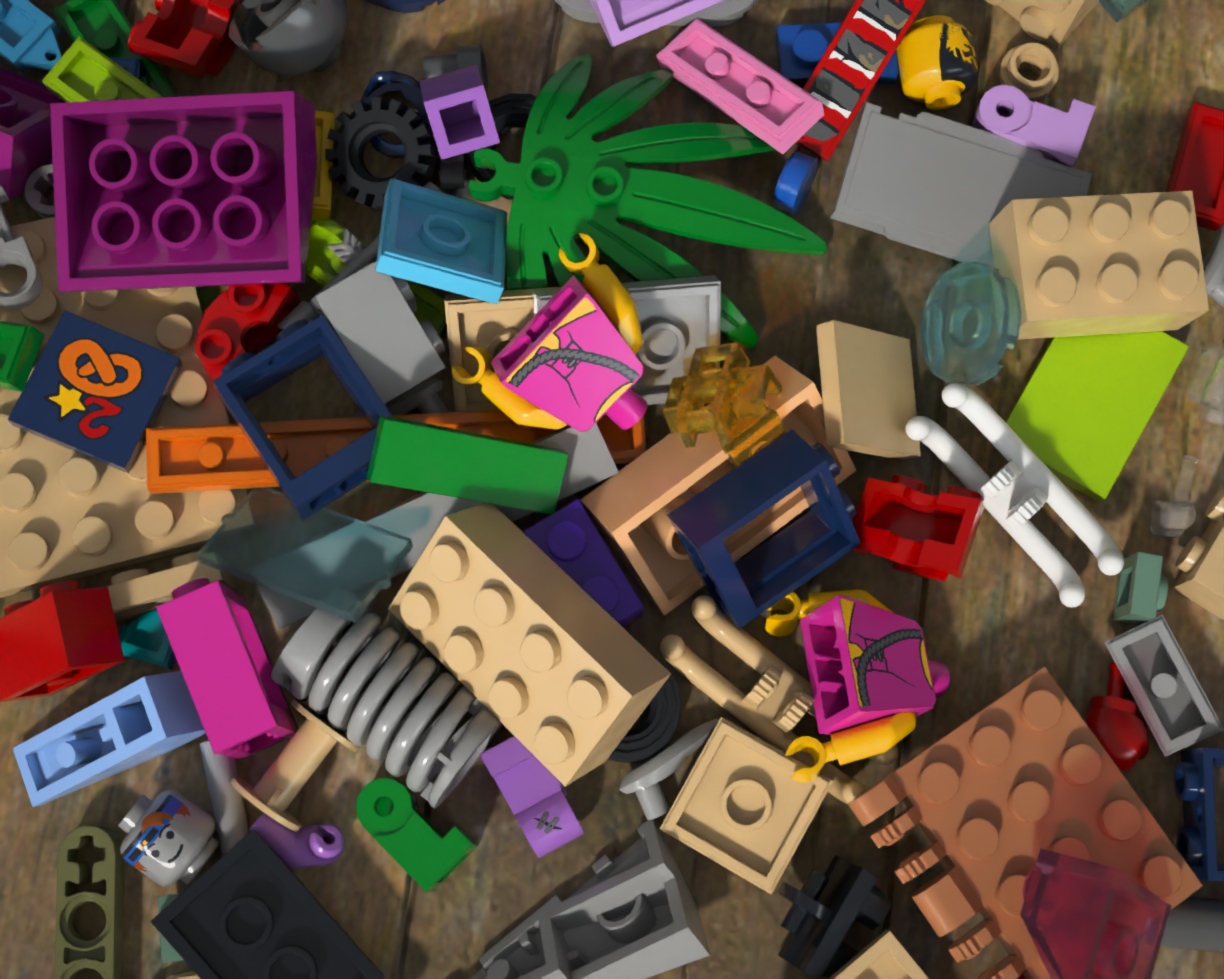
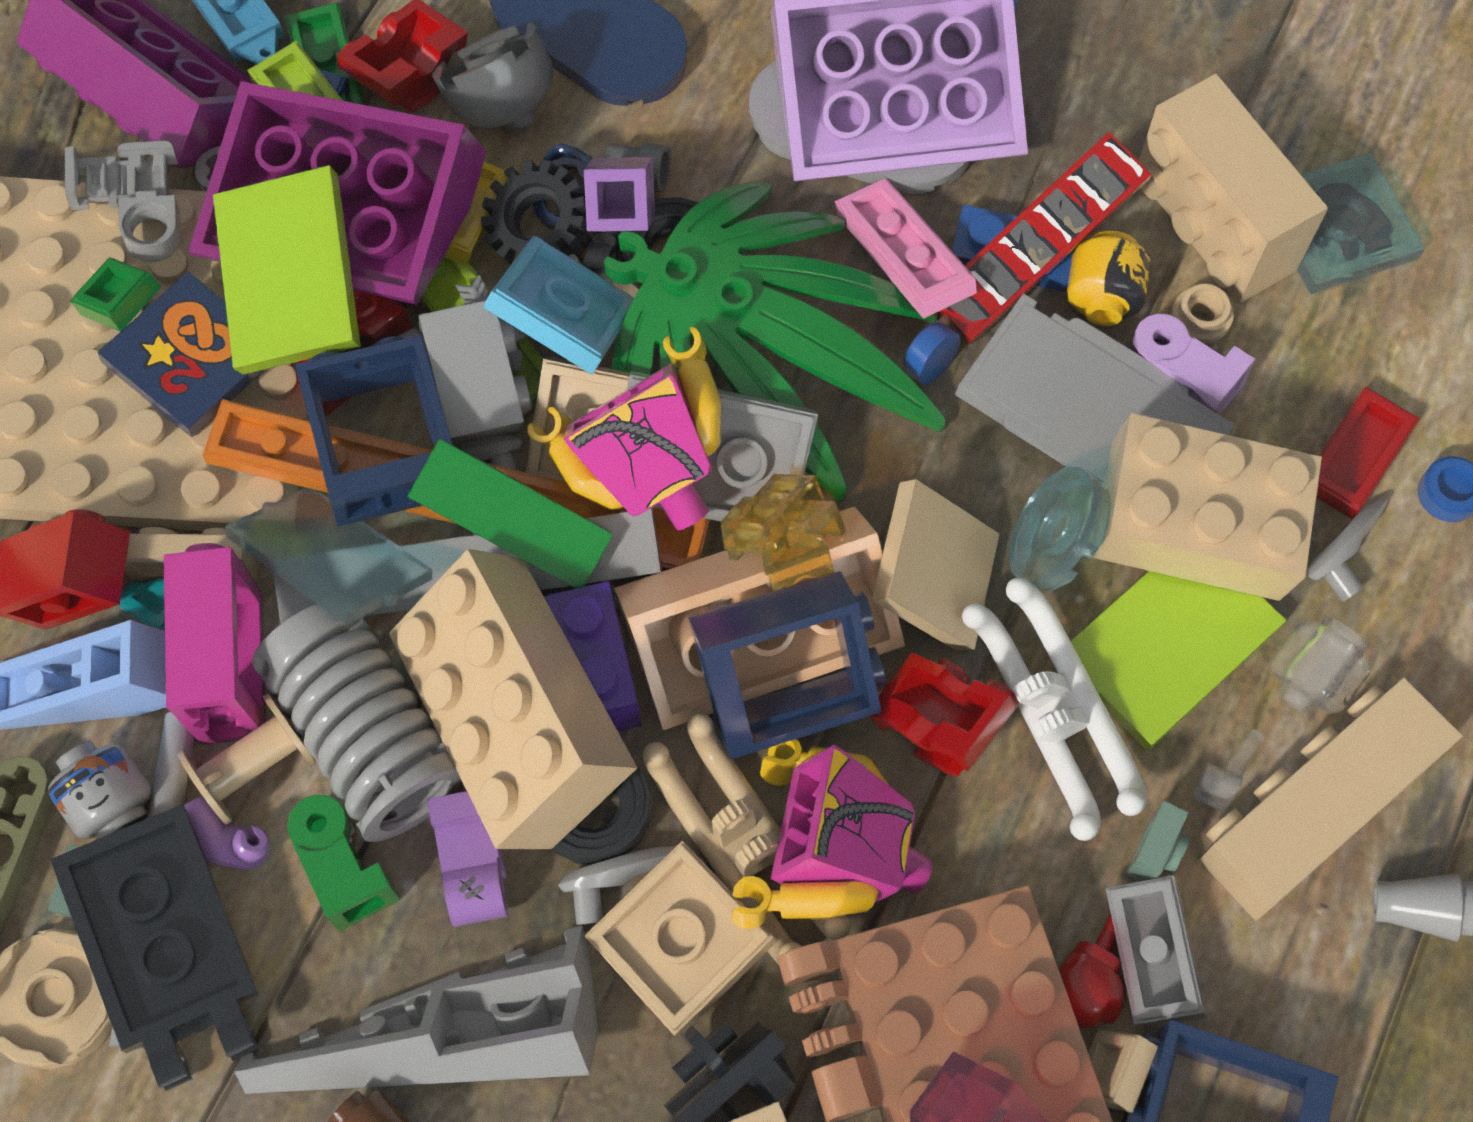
camera: 20 degrees right, 10 degrees down
(166, 285) = (285, 270): none -> lime tile
(1168, 797) = (1121, 1066): none -> tan tile

